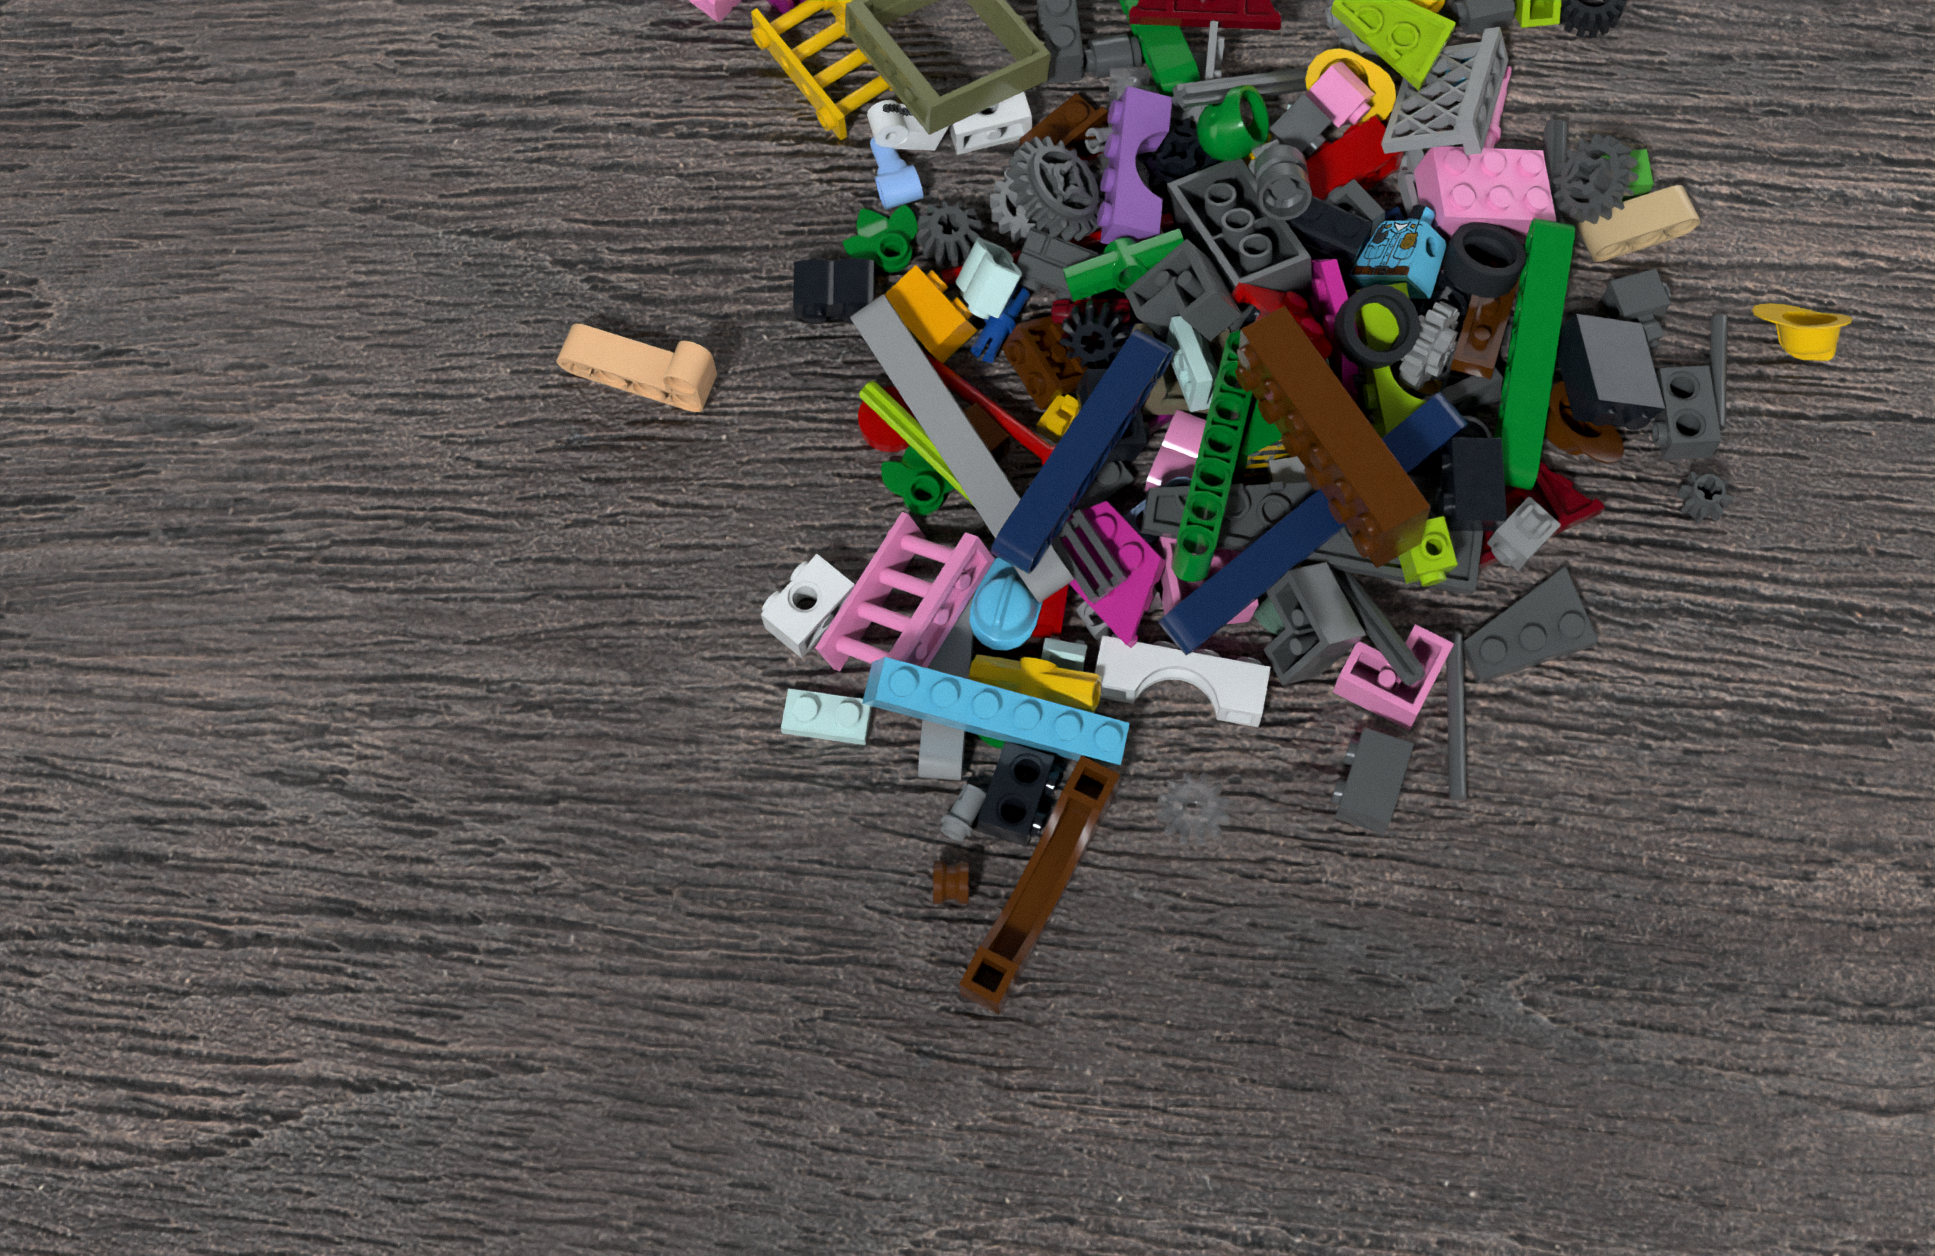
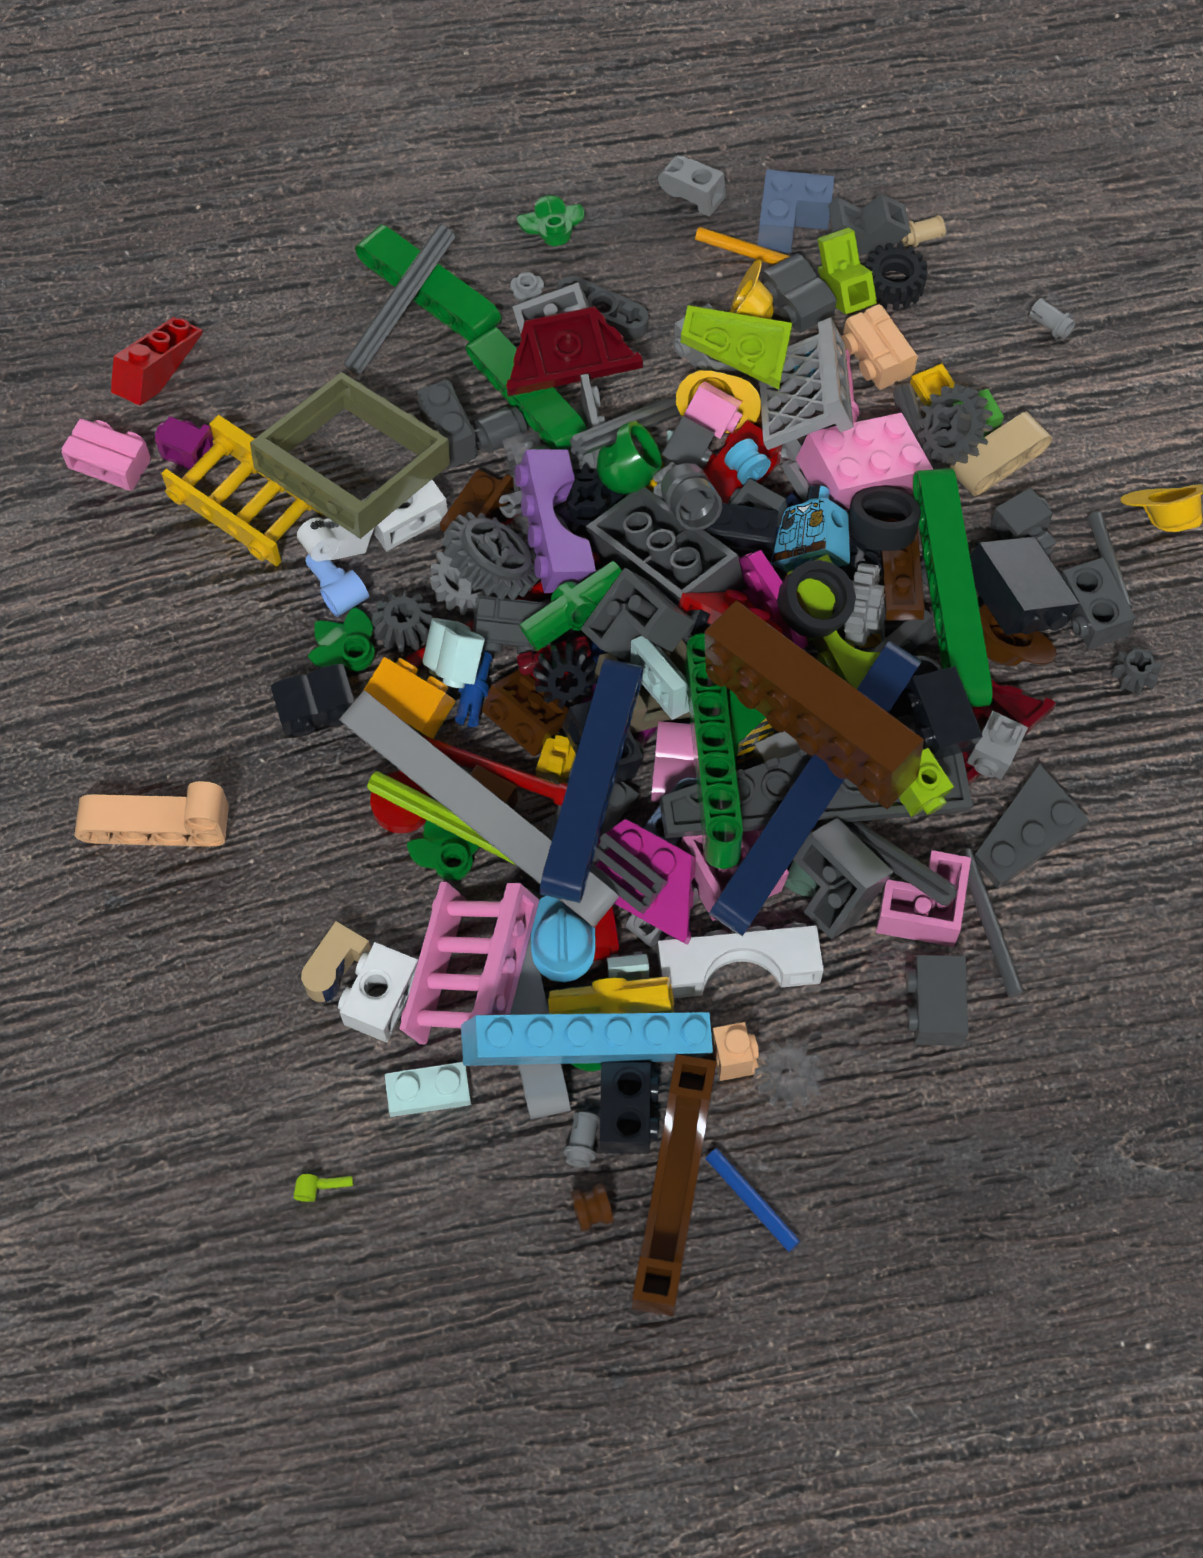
camera: 20 degrees left, 5 degrees down
(679, 776) = (307, 1186): none -> lime hand
(770, 561) = (332, 961): none -> tan leg
(1116, 924) = (753, 1200): none -> blue bar
(1145, 770) = (734, 1051): none -> light nougat brick
(1358, 159) = (747, 461): none -> medium azure wheel
(1545, 72) = (879, 347): none -> light nougat brick
(1587, 123) = (931, 382): none -> yellow tile
(1747, 90) = (1052, 318): none -> light grey pin

